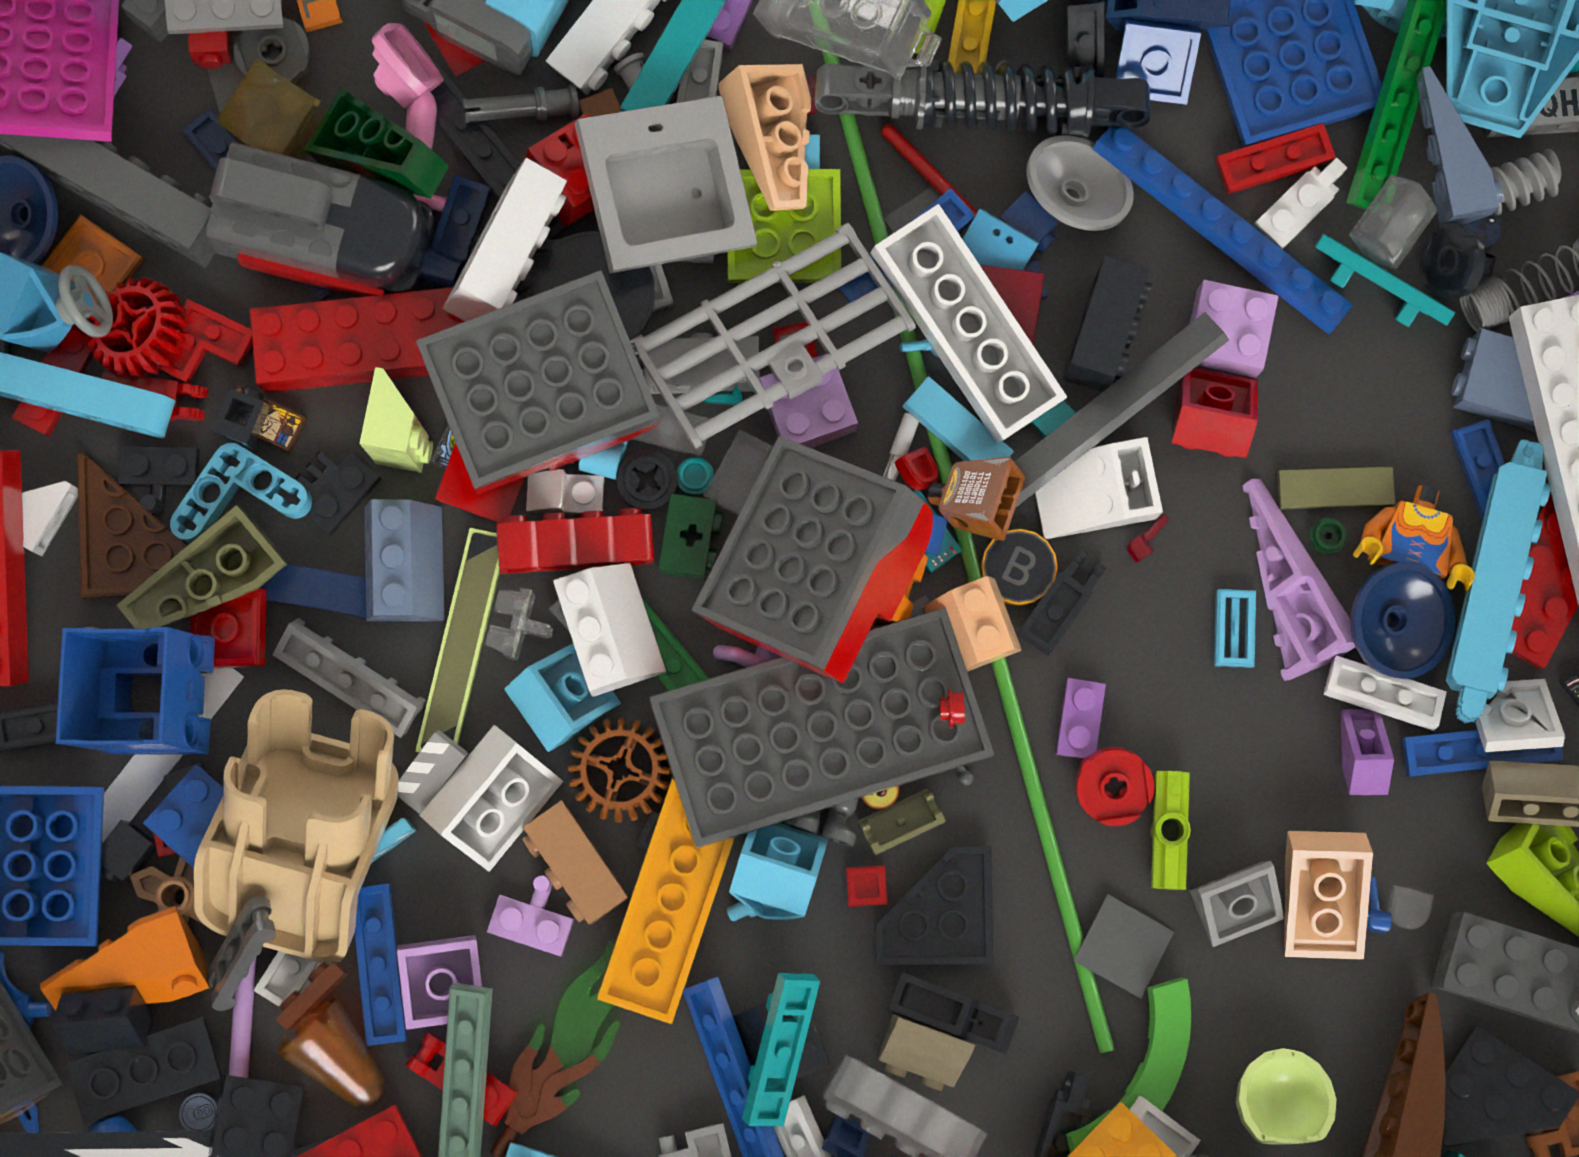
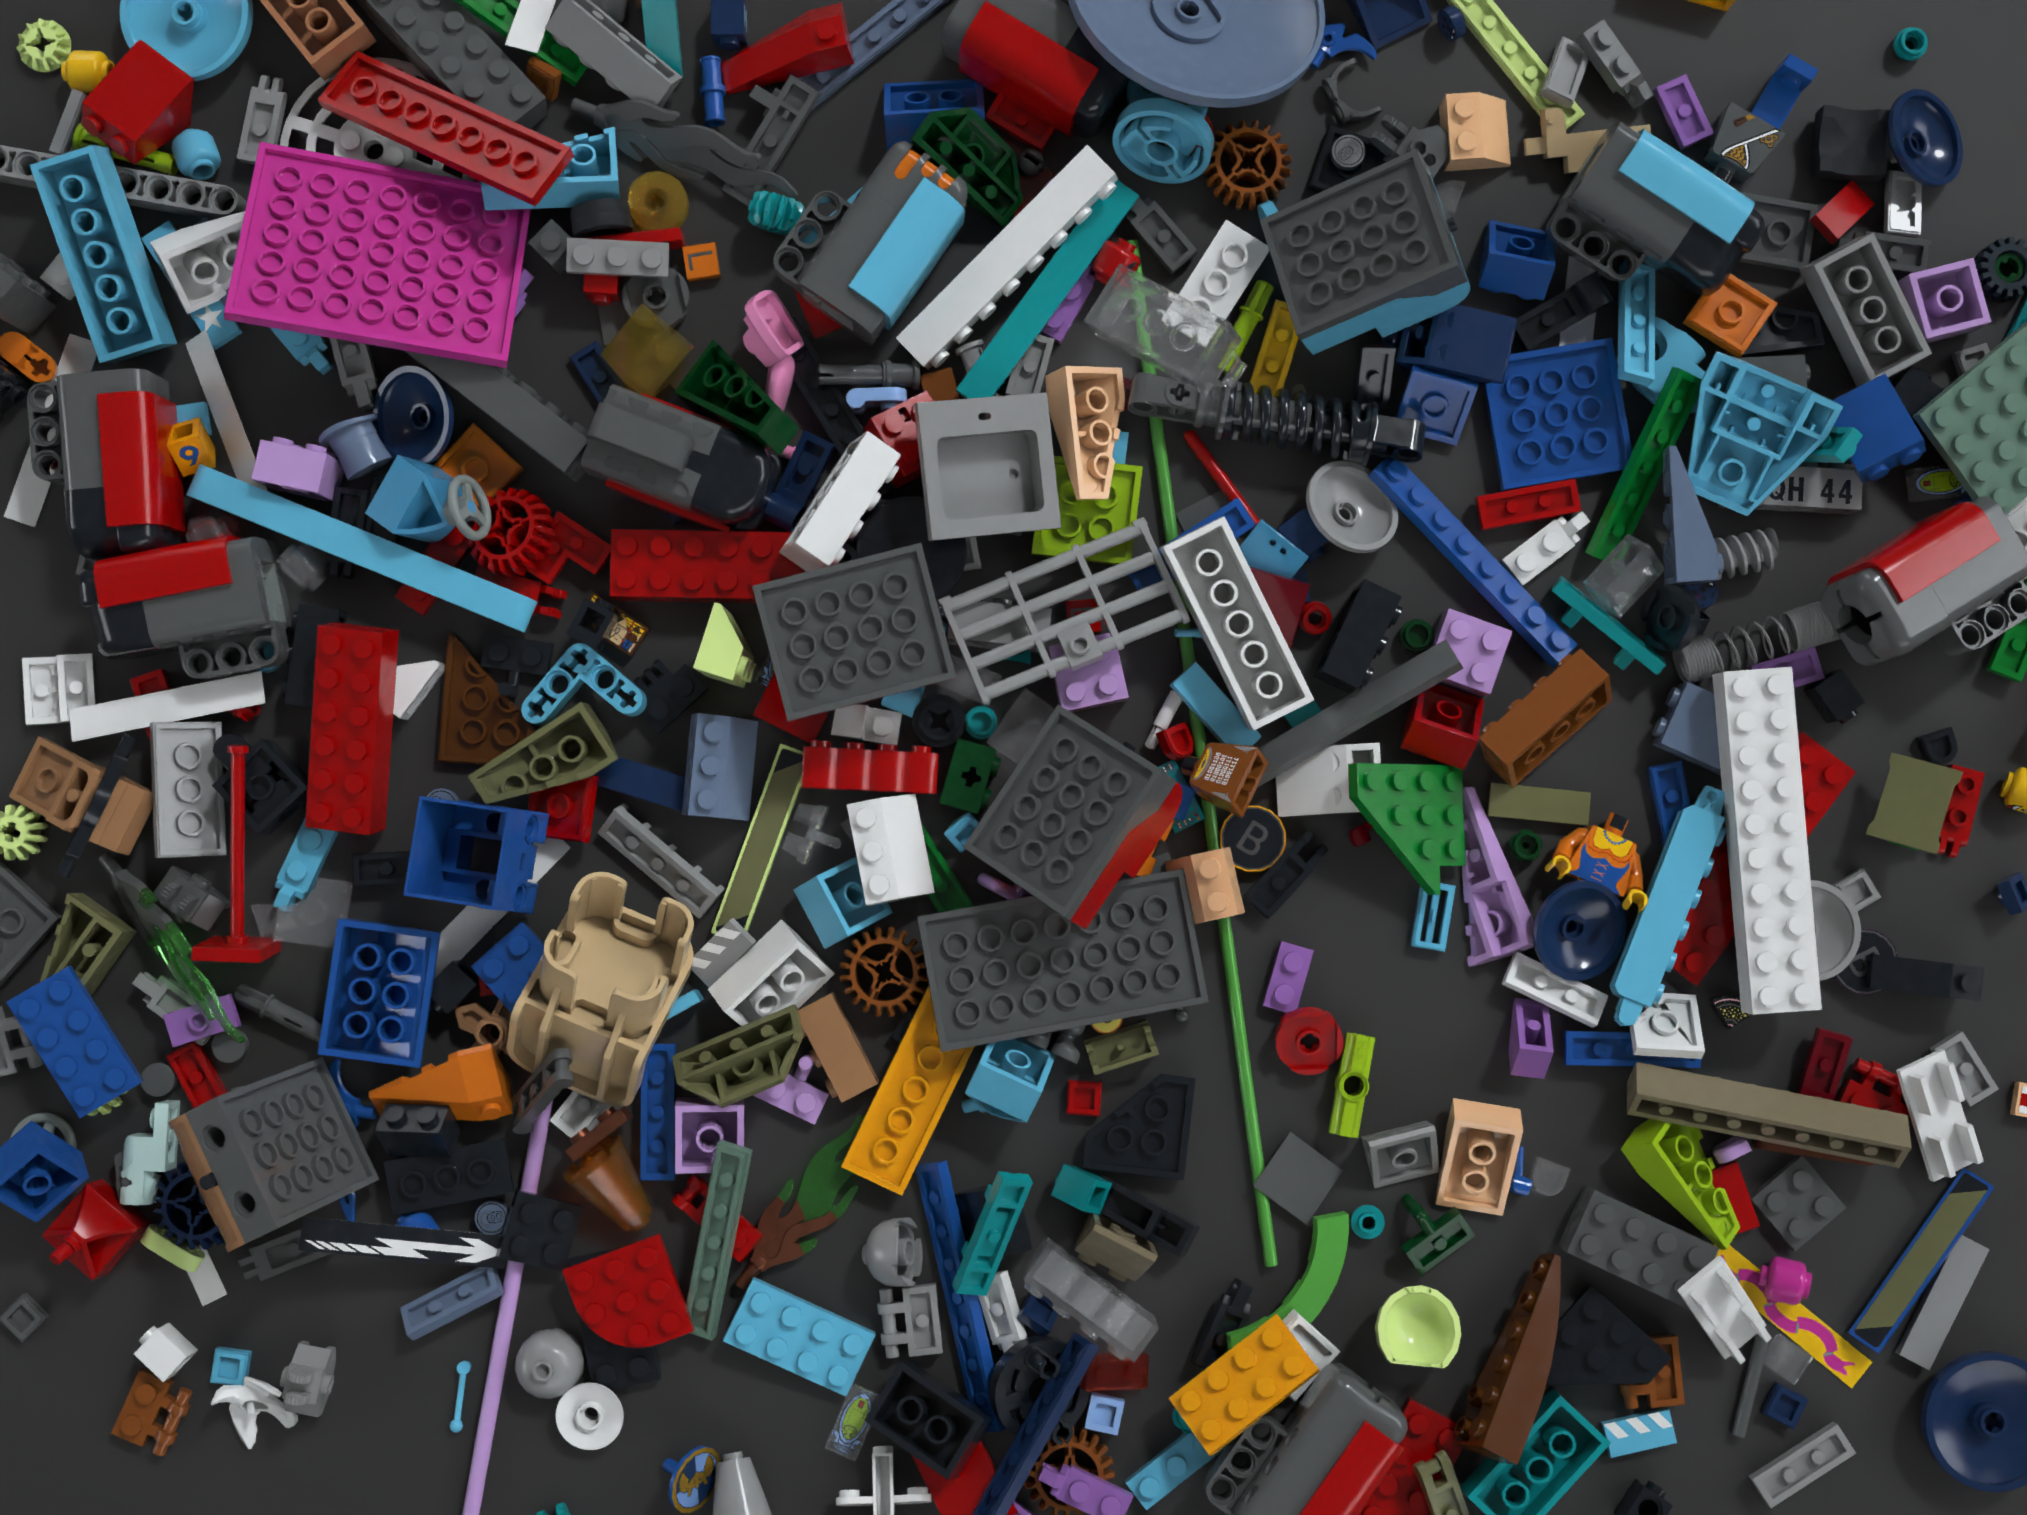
camera: 10 degrees right, 5 degrees up
(467, 888) = (741, 1059): none -> olive wedge
(531, 130) = (885, 397): none -> light blue plate
(669, 1092) = (893, 1253): none -> light grey cylinder
(685, 599) = (961, 830): none -> medium azure slope
(877, 989) = (1081, 1189): none -> teal brick
(952, 708) = (1177, 958): red plate -> none
(1064, 320) = (1320, 626): none -> red plate
(1171, 317) = (1416, 635): none -> dark green plate
(1199, 512) = (1415, 813): none -> green wing
(1199, 992) = (1358, 1216): none -> teal plate
(1293, 993) = (1437, 1238): none -> dark green plate
(1329, 387) = (1545, 717): none -> dark orange brick

